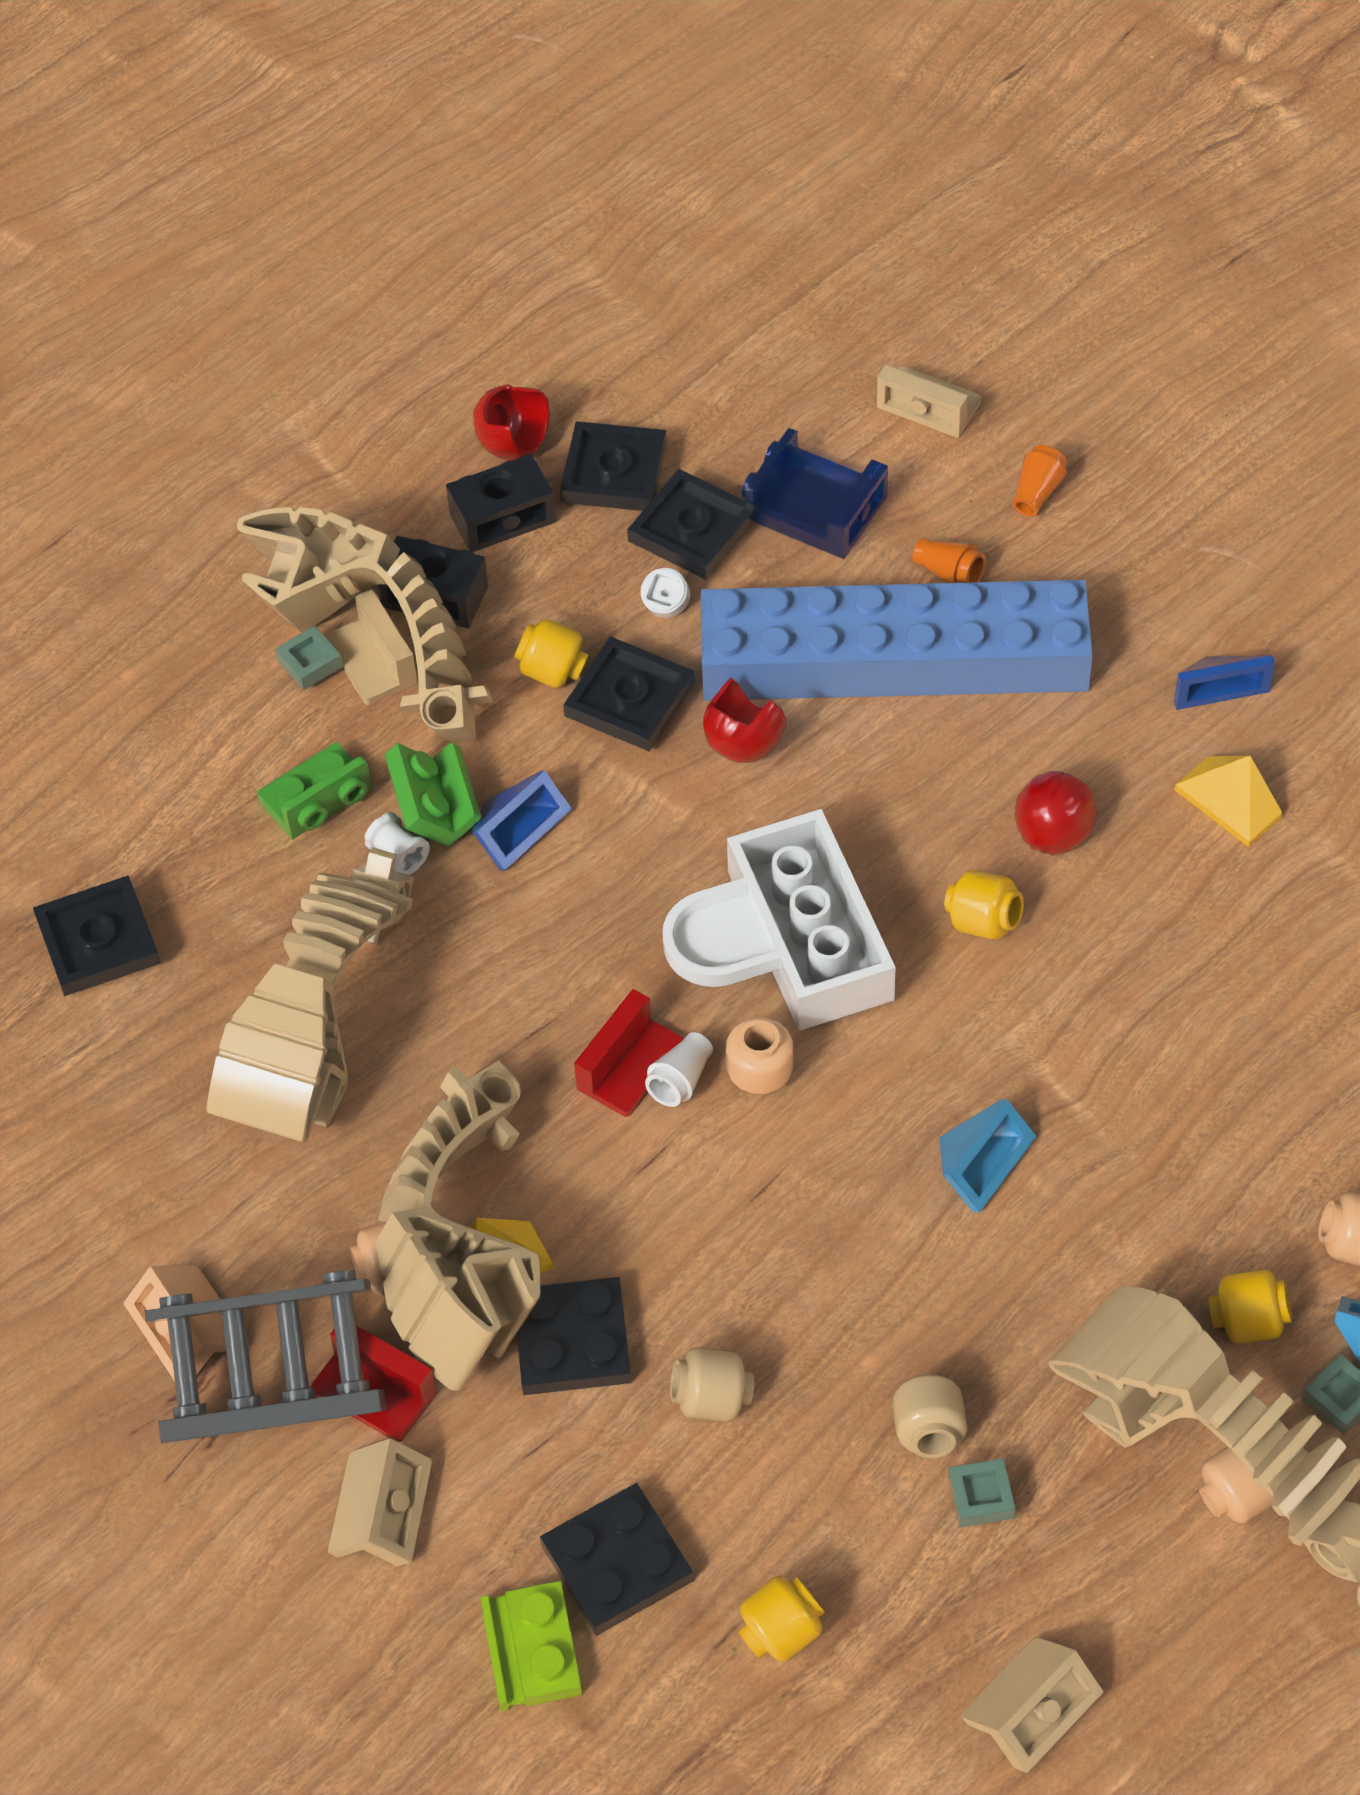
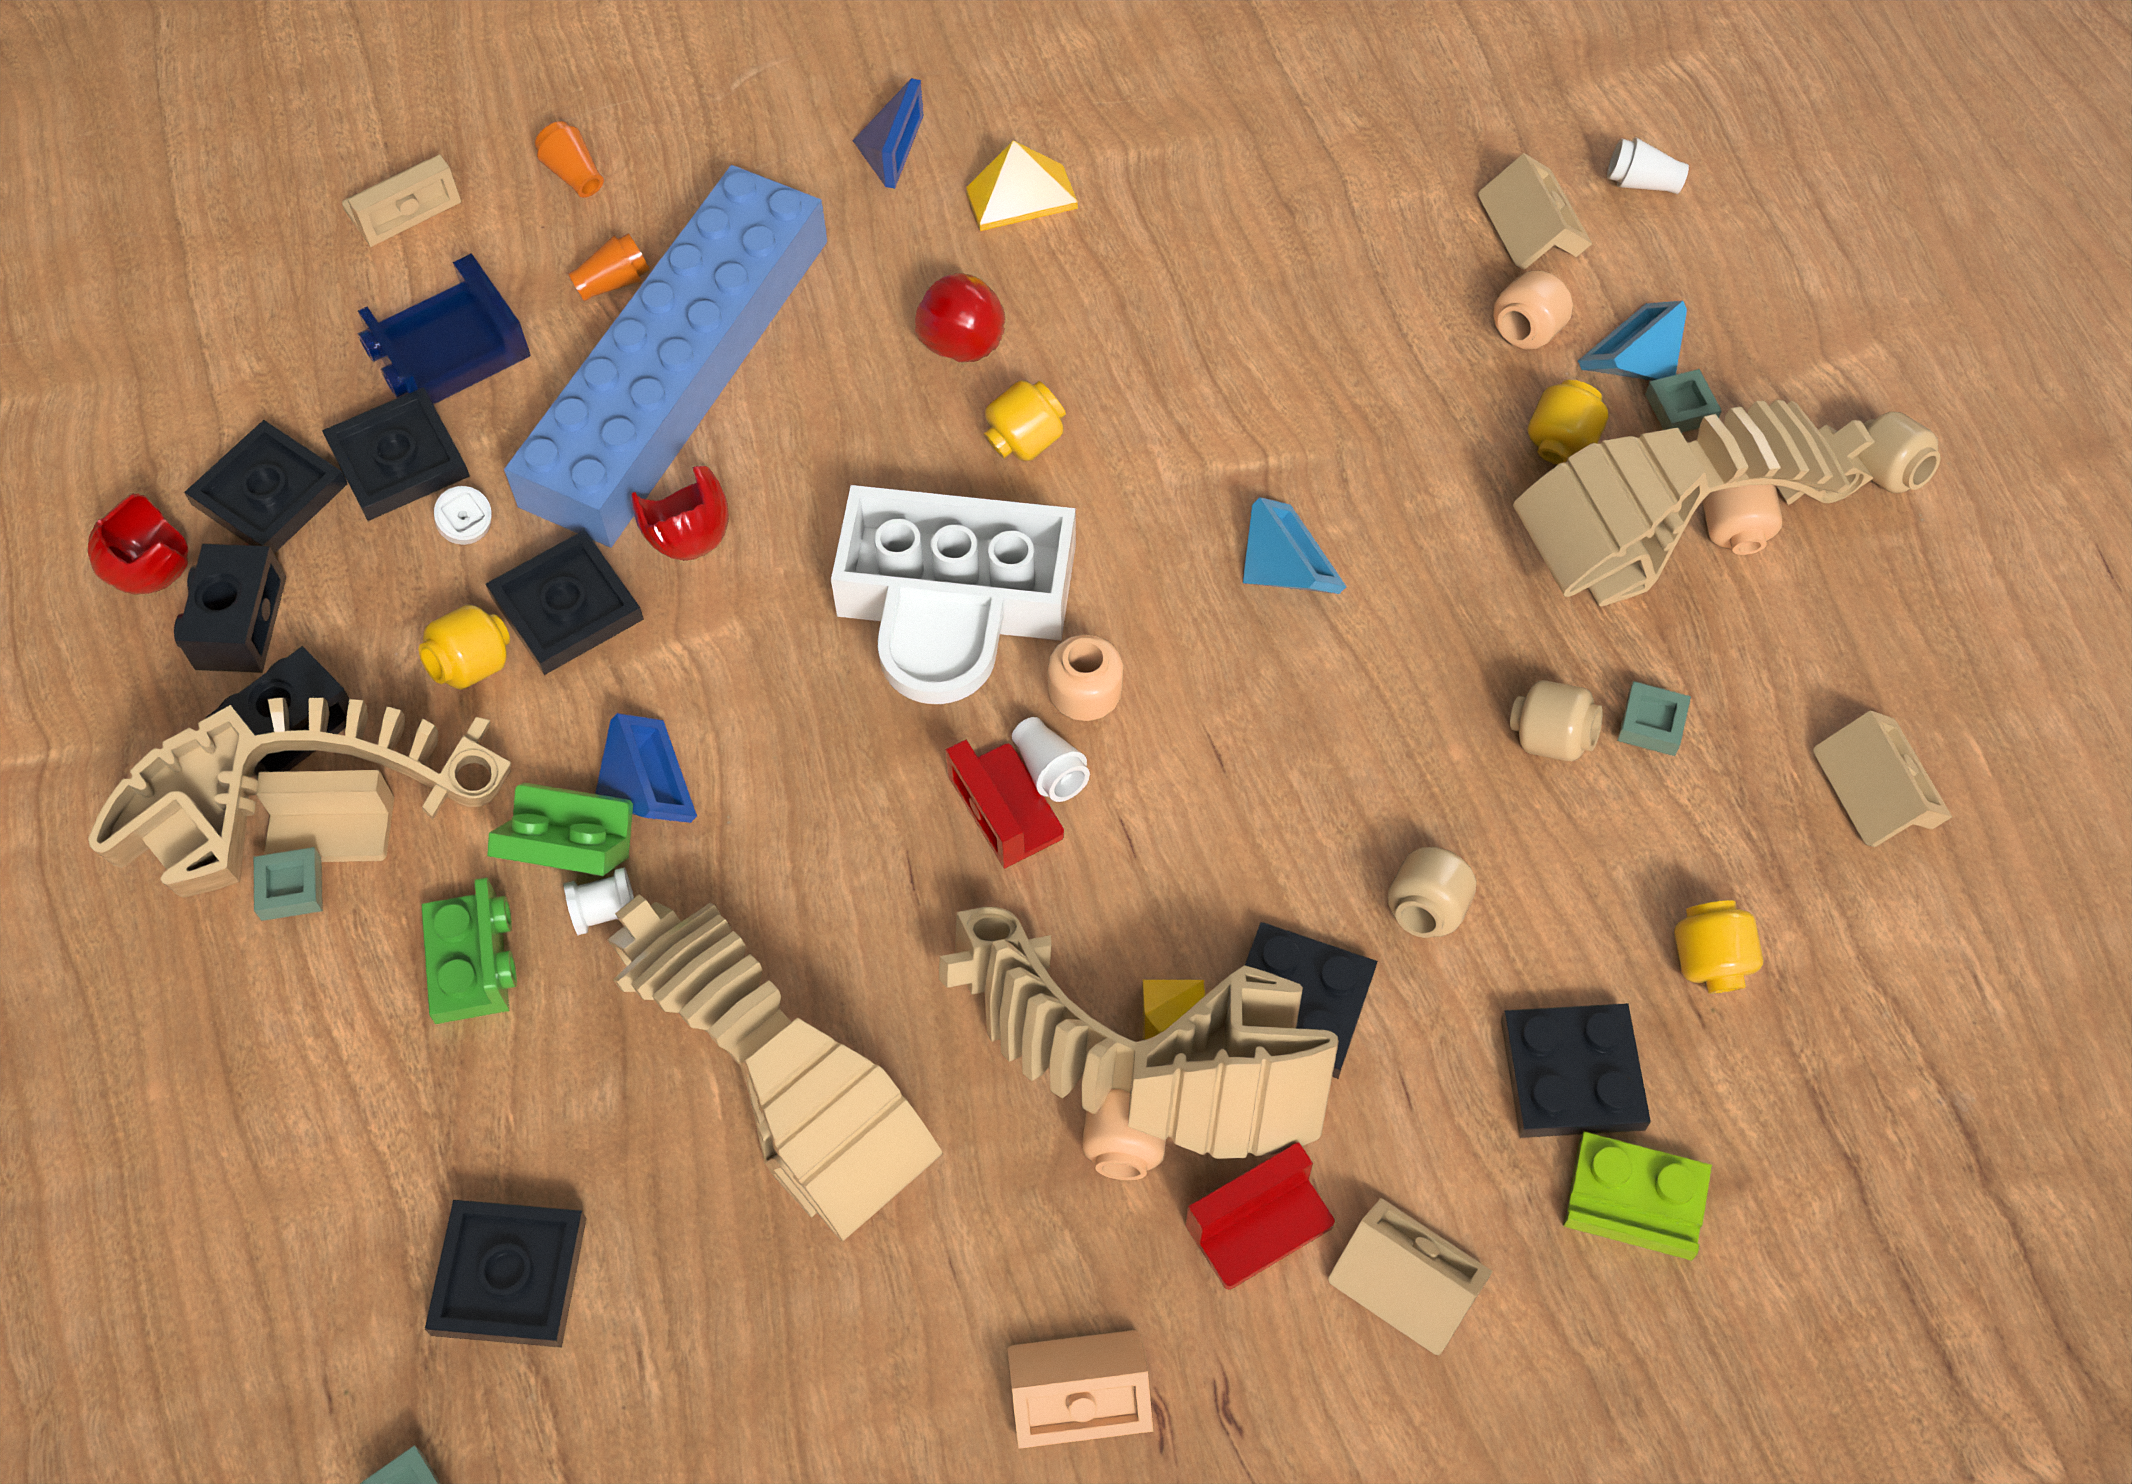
camera: 65 degrees left, 5 degrees up
(299, 1400) = (1267, 1301): dark grey fence -> none

